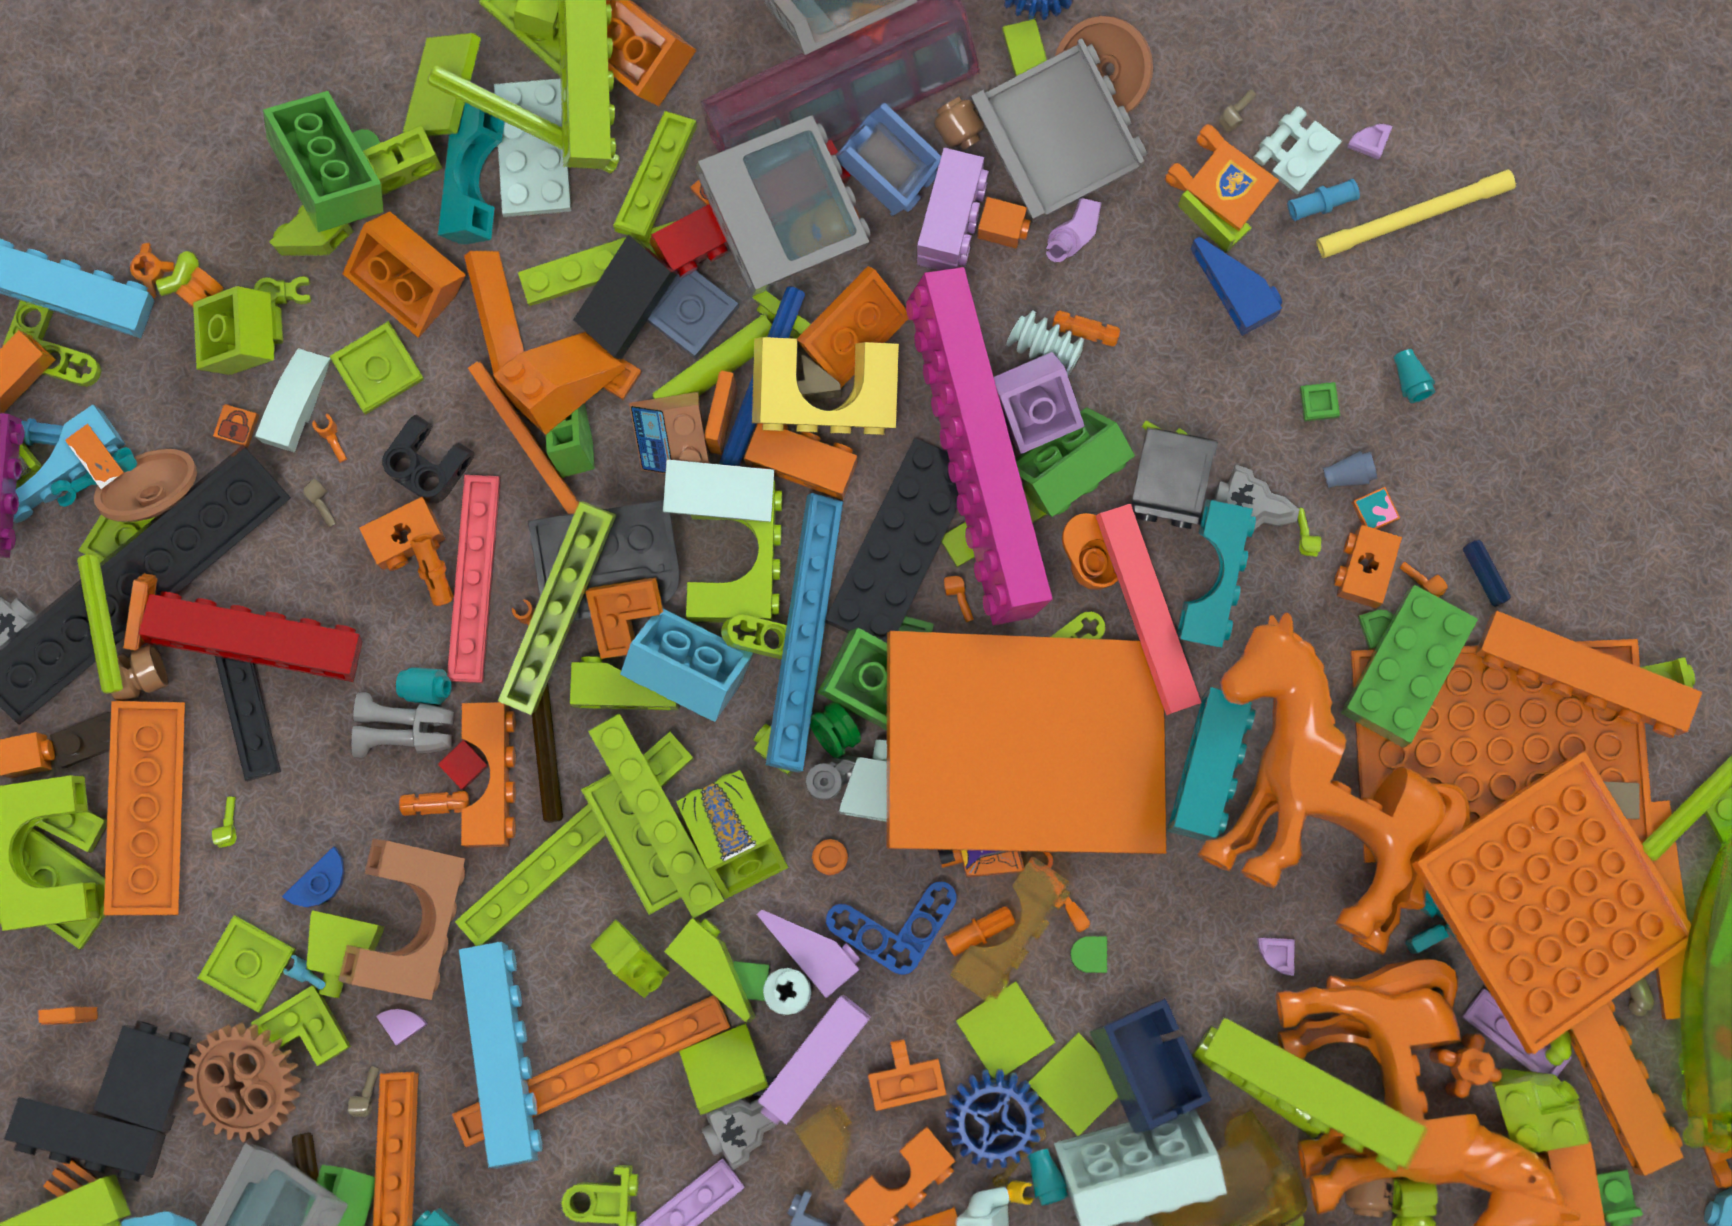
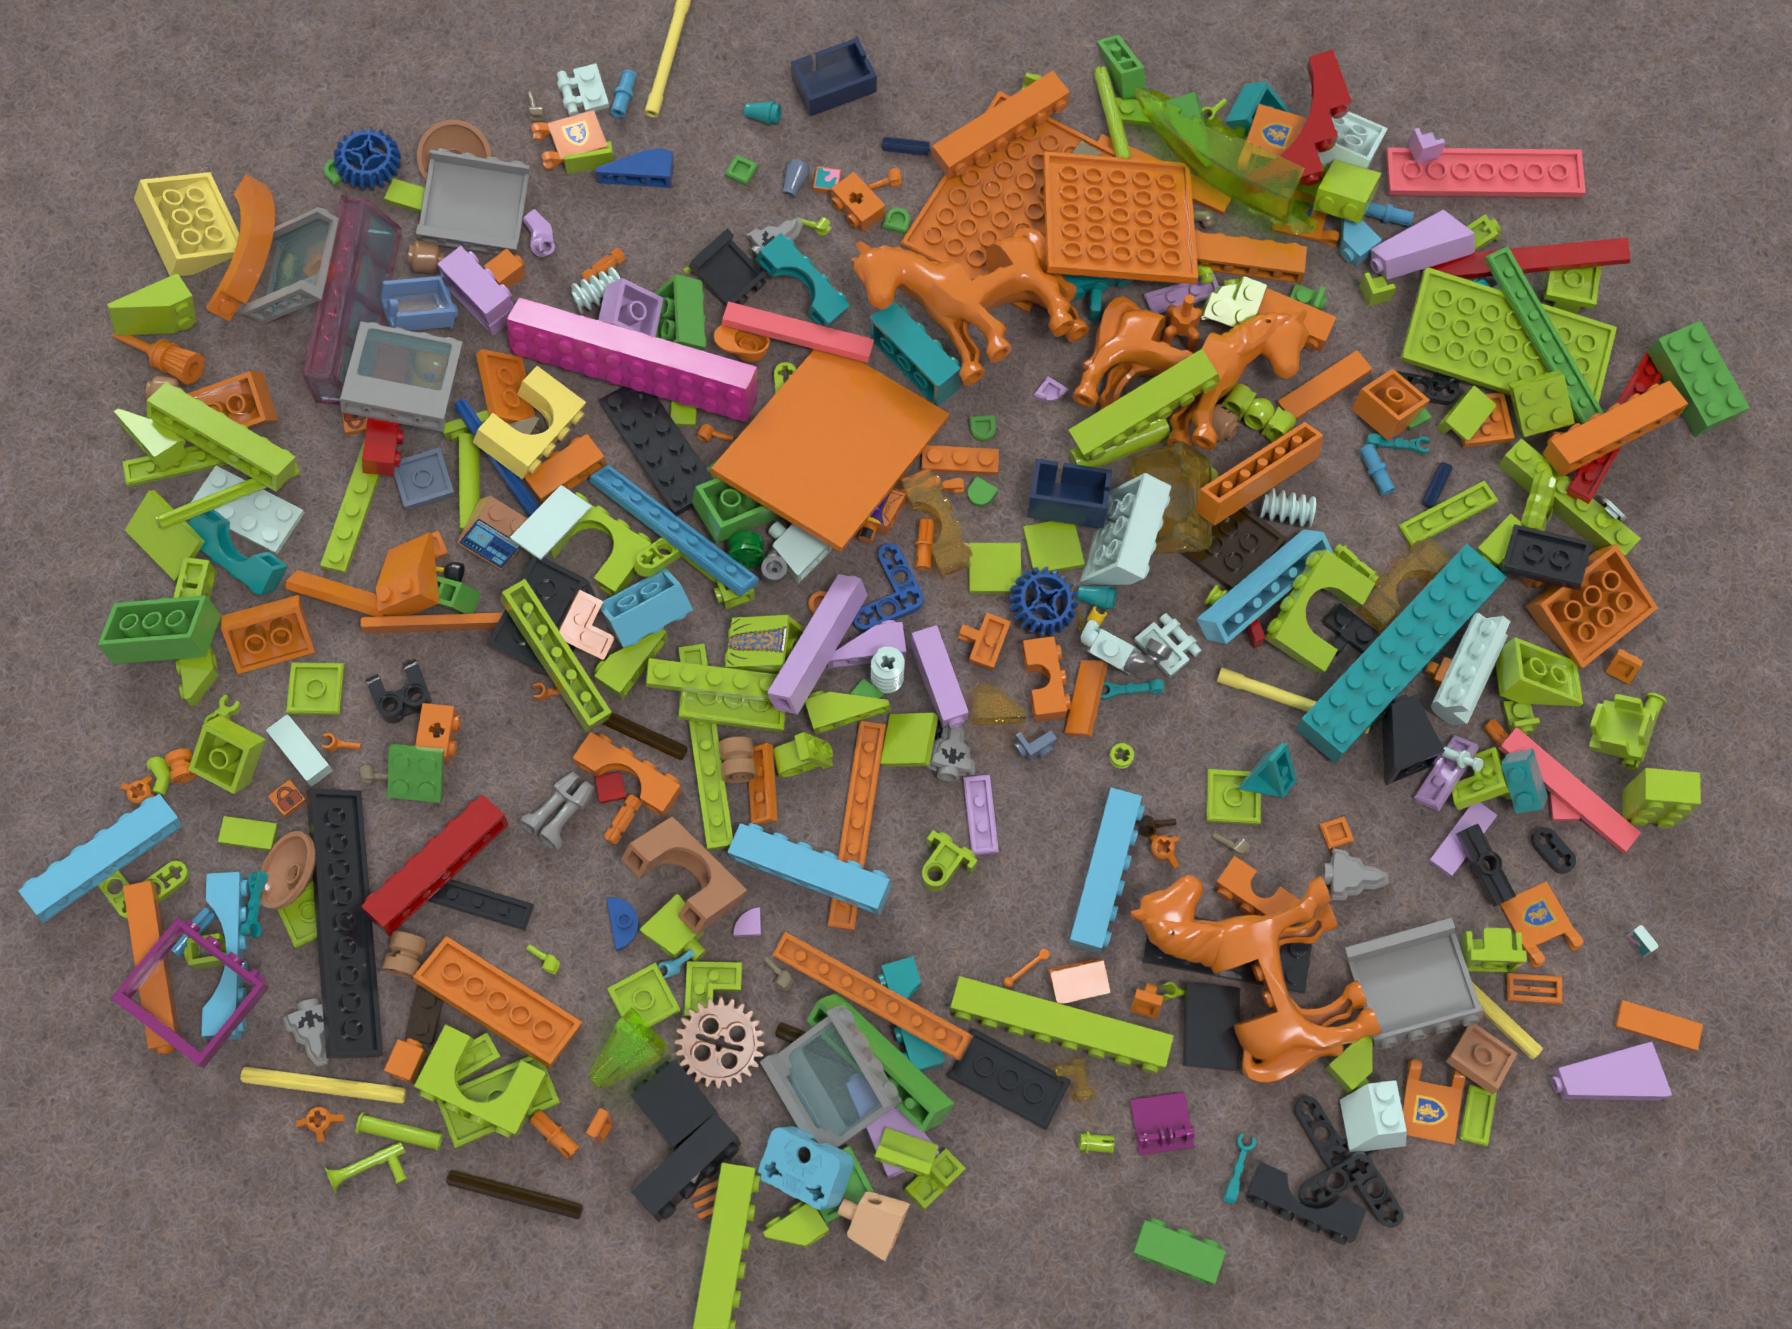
camera: 65 degrees left, 10 degrees down
(40, 968) = (554, 1134): none -> orange axle
(94, 456) = (241, 892): orange sticker -> none
(100, 623) = (358, 947): lime axle -> none
(140, 591) = (367, 923): orange tile -> none
(172, 412) = (248, 833): none -> lime tile
(174, 992) = (628, 1050): none -> clear neon green slope
(341, 544) = (415, 773): none -> bright green plate
(423, 685) = (543, 778): teal brick -> none
(432, 569) = (486, 733): orange pin -> none
(473, 579) = (496, 710): coral tile -> none
(568, 933) = (762, 789): none -> orange tile
(574, 888) = (737, 763): none -> medium nougat wheel
(602, 420) = (453, 571): none -> black hinge
(625, 297) = (387, 506): black tile -> none
(655, 176) = (322, 447): lime tile -> none
(721, 412) = (499, 490): orange tile -> none
(767, 890) = (817, 644): none -> lavender brick
(1116, 903) = (960, 460): none -> orange plate
(1176, 903) = (982, 427): none -> bright green tile
(1371, 140) = (607, 49): lavender tile -> none
(1409, 666) = (931, 212): bright green brick -> none
(1517, 433) = (837, 76): none -> dark blue piece

